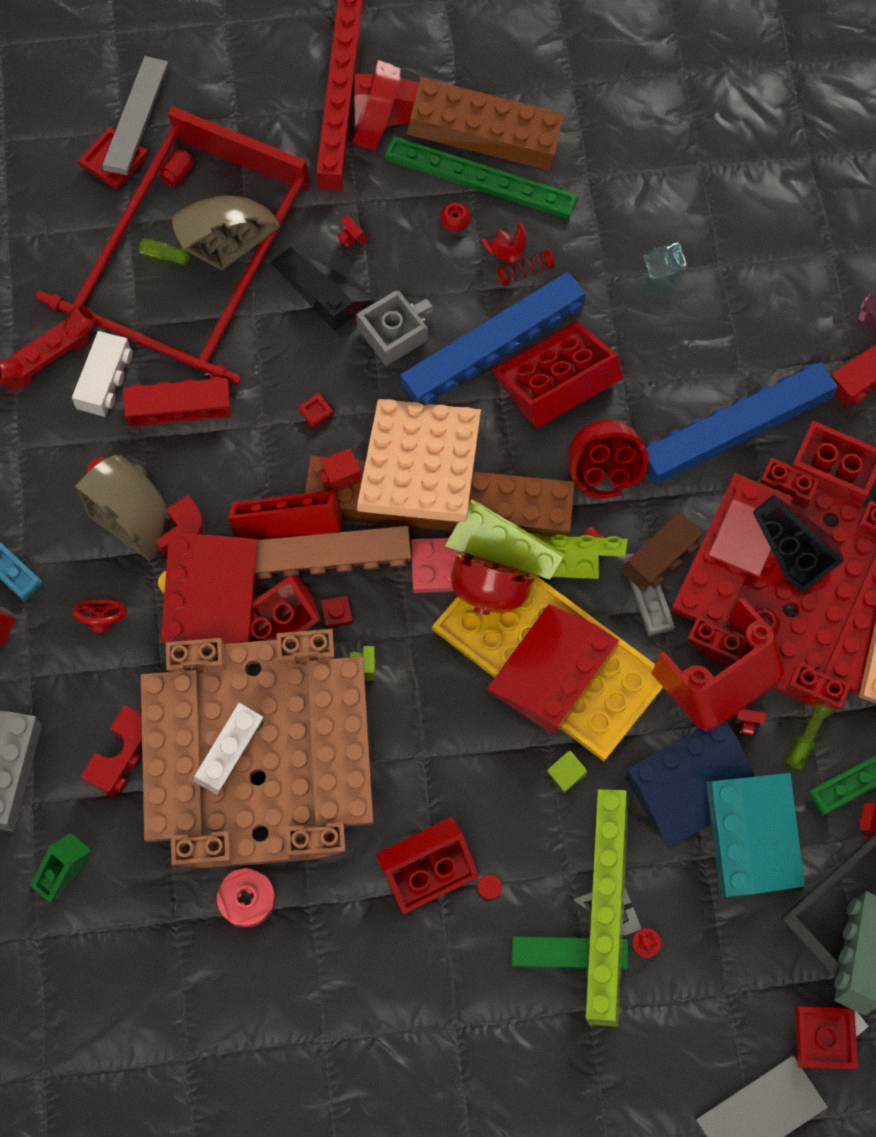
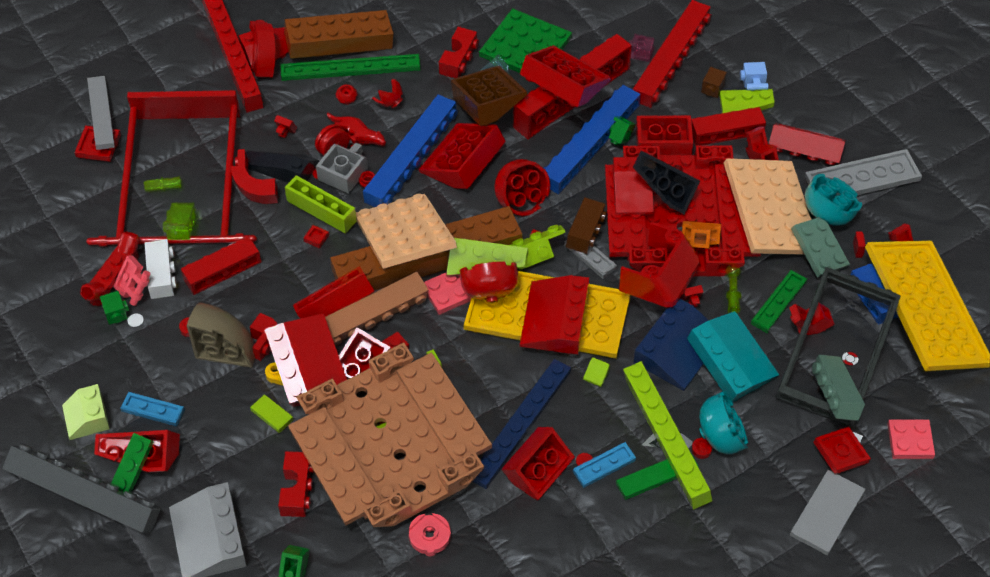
camera: 25 degrees left, 15 degrees down
(23, 405) = (114, 307): none -> green brick
(44, 431) = (135, 320): none -> white sticker
(56, 378) = (128, 277): none -> coral plate
(99, 617) = (237, 408): red piece -> none
(140, 639) = (271, 413): none -> lime tile
(156, 317) = (180, 221): none -> clear neon green brick
(176, 167) = (144, 133): red brick -> none
(223, 228) = (201, 149): dark tan brick -> none
(228, 748) = (373, 440): white brick -> none
(274, 314) = (257, 190): none -> red arch
(339, 370) = (320, 204): none -> lime brick
(340, 470) = (357, 253): red brick -> none
(398, 277) = (331, 135): none -> red head
(418, 350) = (365, 178): none -> red plate
(438, 795) = (521, 421): none -> dark blue plate
(440, 278) = (358, 131): none -> red animal
(510, 906) = (604, 464): none -> dark azure tile
(549, 260) = (416, 95): red piece -> none
(616, 230) = (454, 63): none -> red arch
(631, 301) = (487, 94): none -> reddish brown slope
(677, 930) = (722, 425): none -> teal cylinder
(728, 239) = (521, 35): none -> green plate
(741, 322) = (563, 75): none -> red slope
(752, 334) = (541, 106): none -> red brick
(783, 430) = (621, 130): none -> green brick
(805, 639) = (701, 234): none -> orange brick

